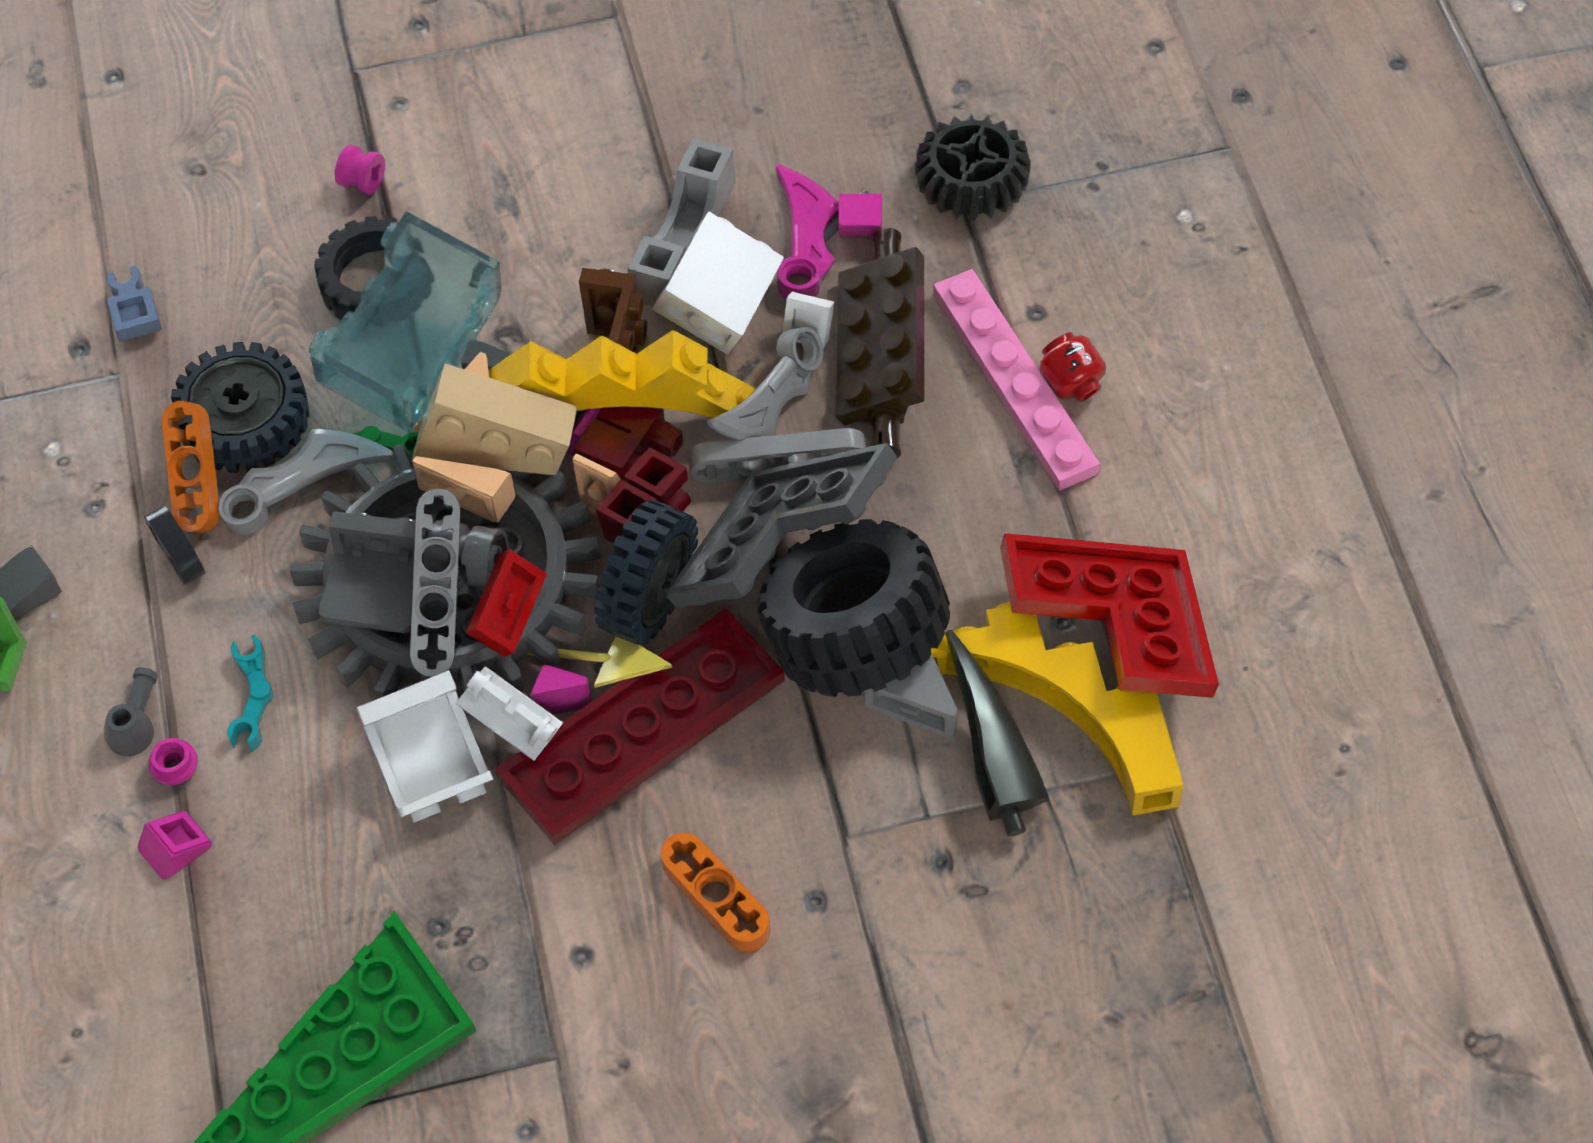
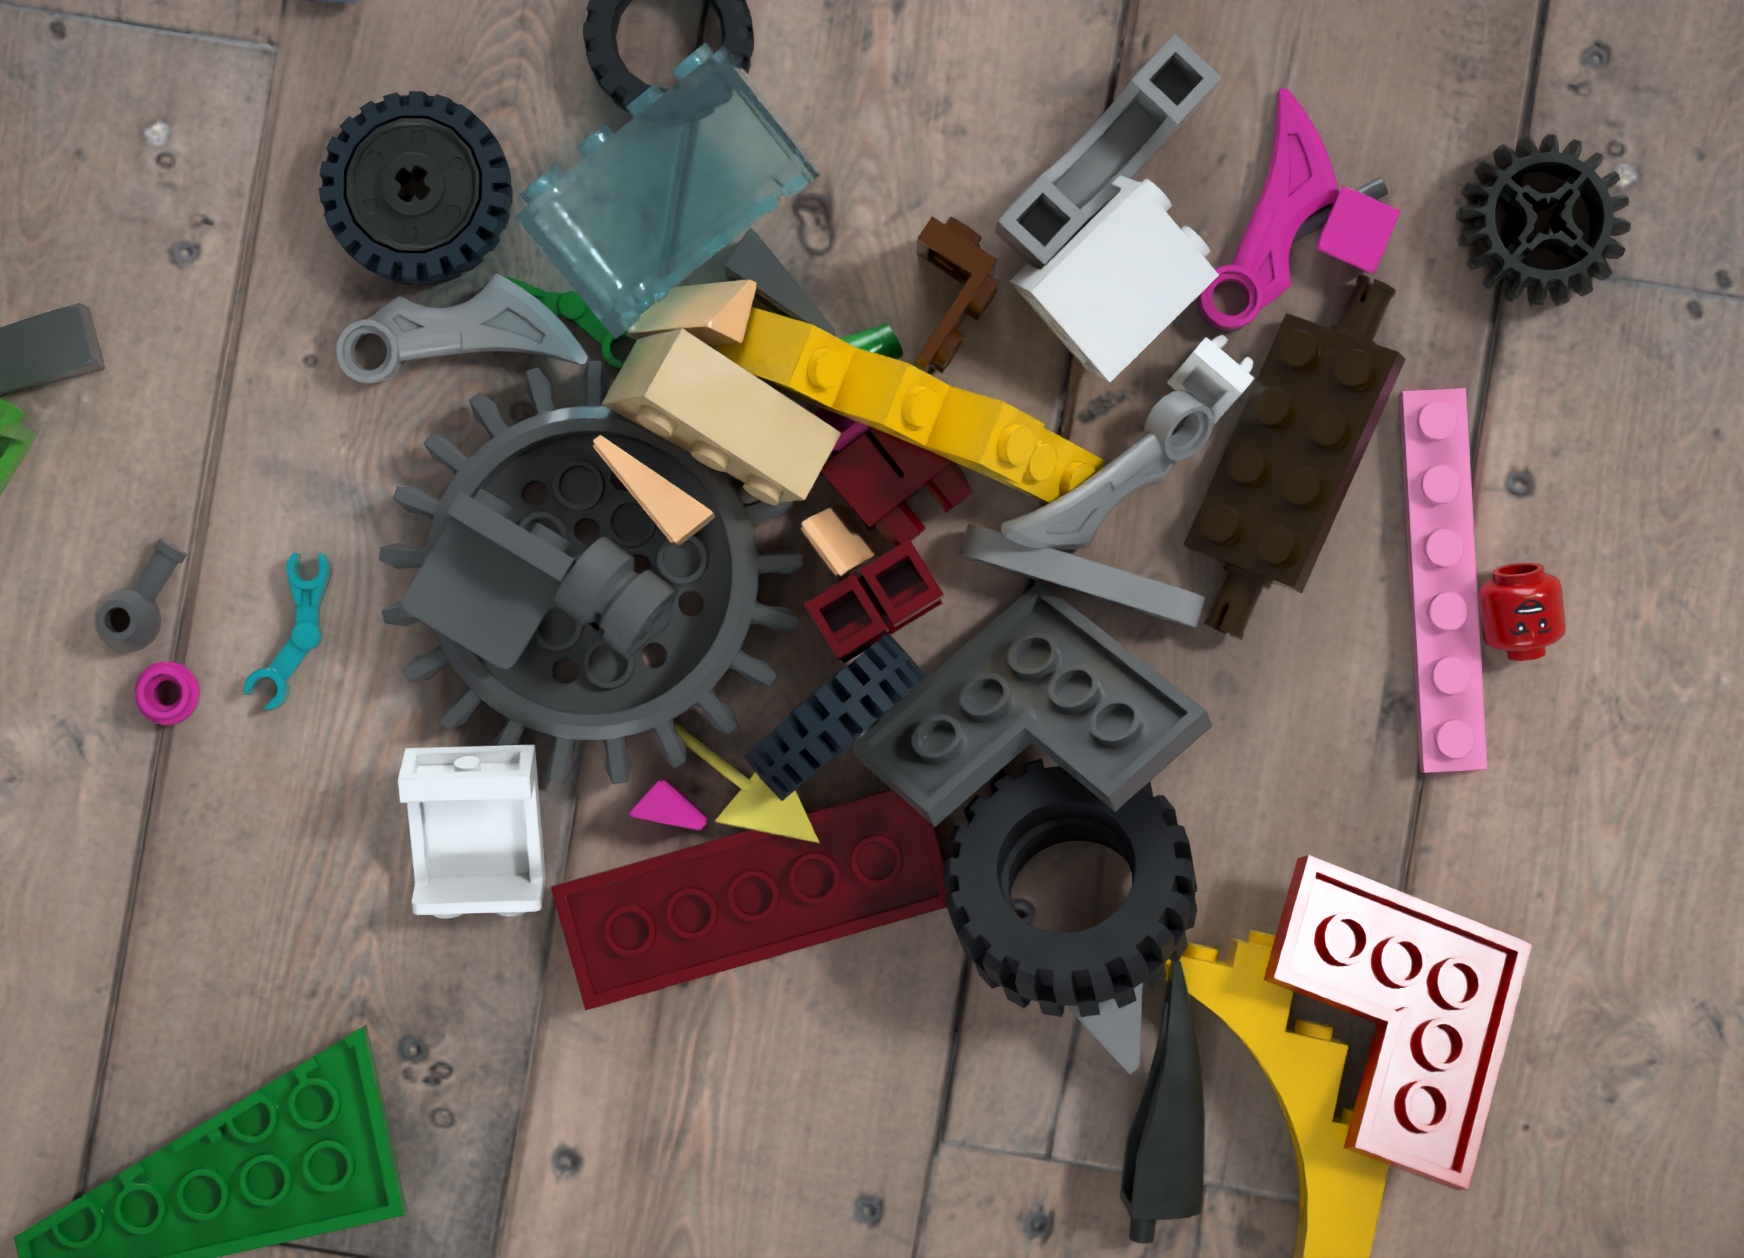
camera: 20 degrees right, 30 degrees up
(172, 843) = (135, 803): dark pink slope -> none
(174, 544) = (264, 373): black beam -> none
(175, 455) = (337, 254): orange beam -> none
(429, 582) = (554, 644): light grey beam -> none
(506, 603) = (640, 692): red plate -> none
(509, 713) = (593, 832): white hinge -> none
(713, 870) = (782, 1196): orange beam -> none

